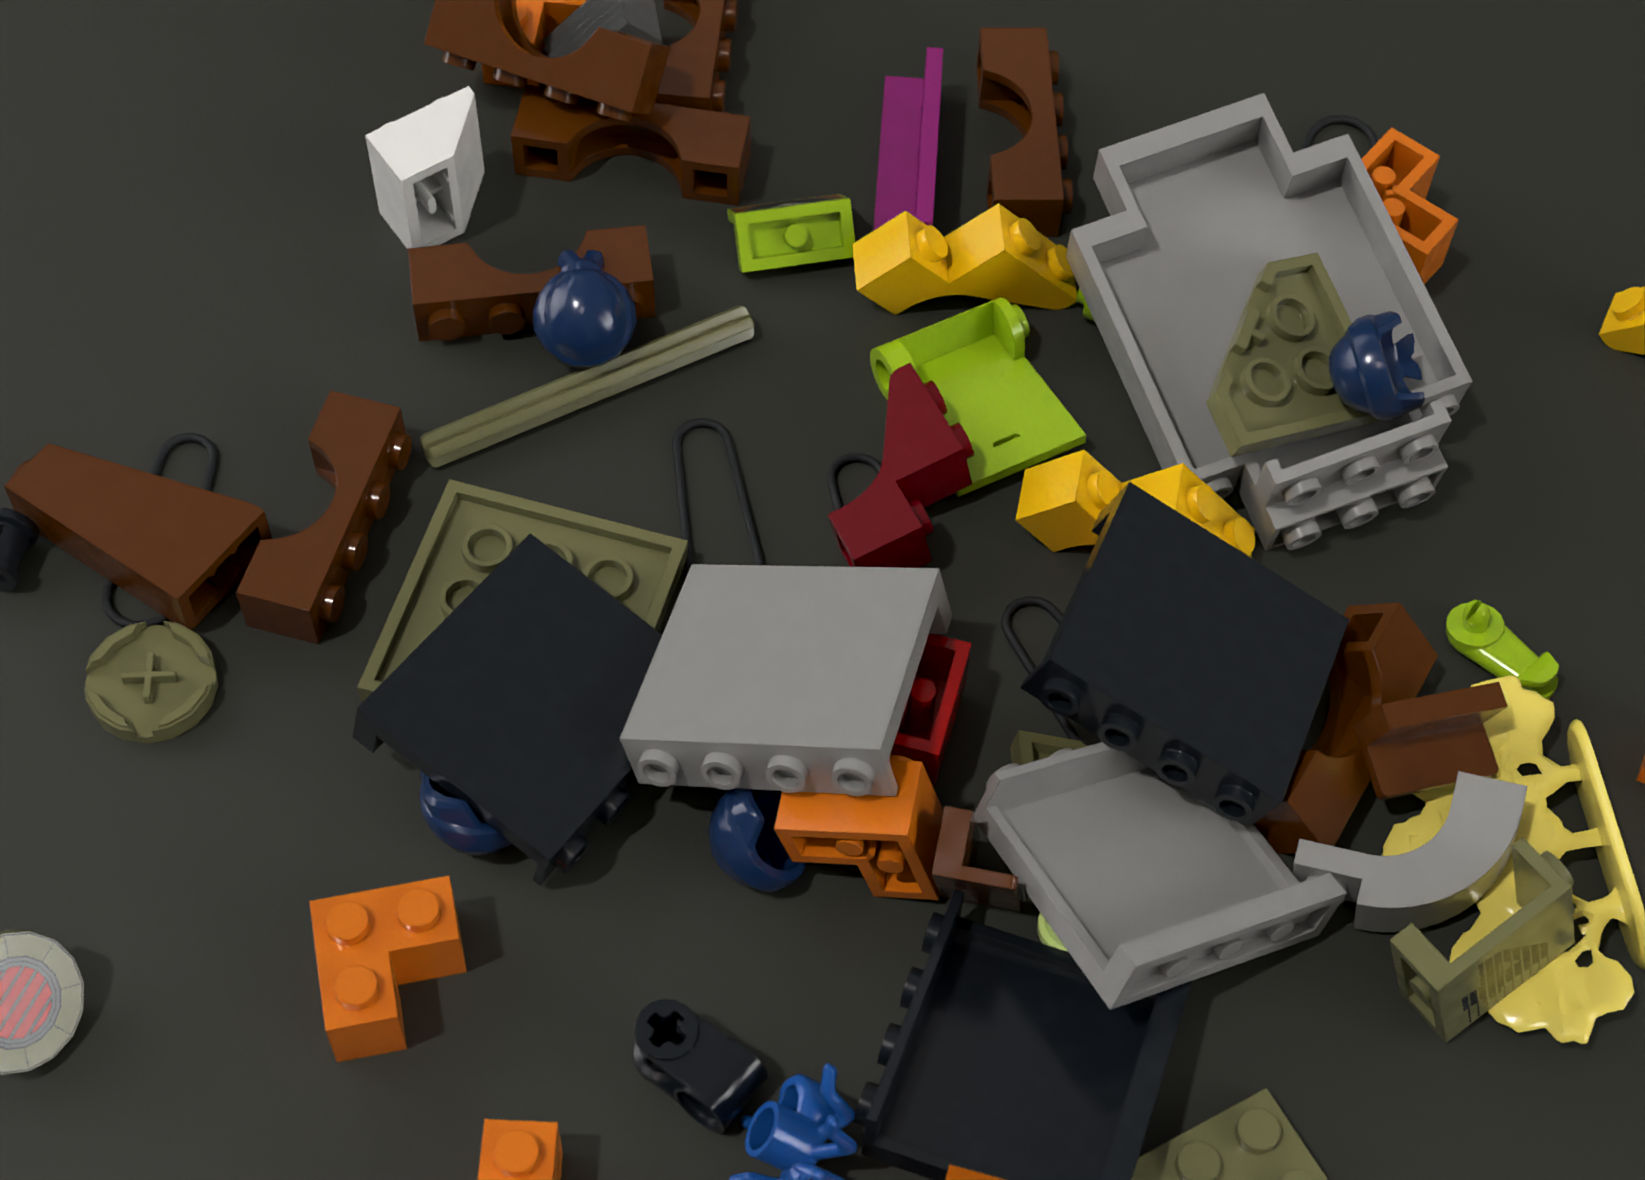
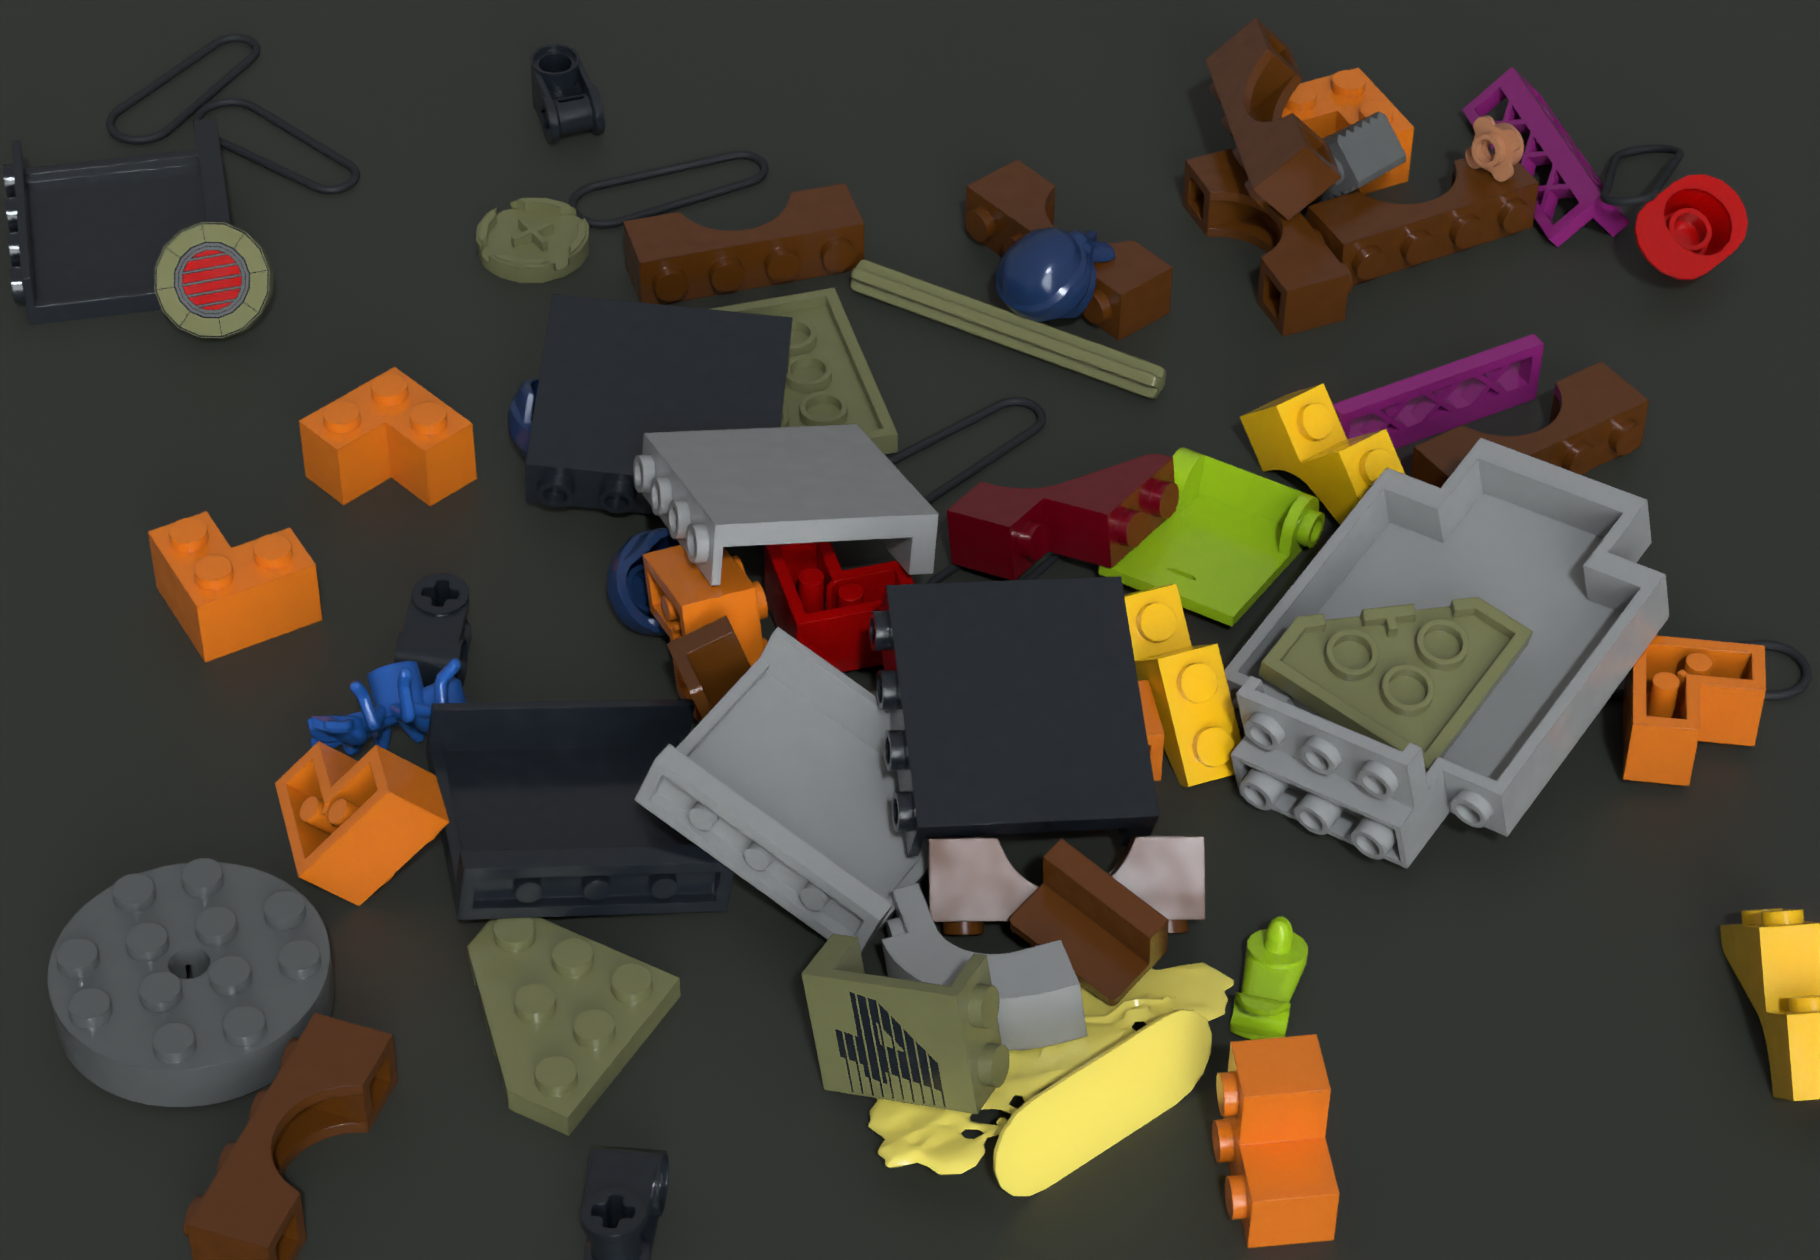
camera: 60 degrees right, 15 degrees down
(139, 530) = (640, 158): reddish brown slope -> none
(429, 170) = (1108, 137): white slope -> none
(793, 232) = (1268, 361): lime panel -> none
(1371, 368) = (1432, 702): dark blue hat -> none

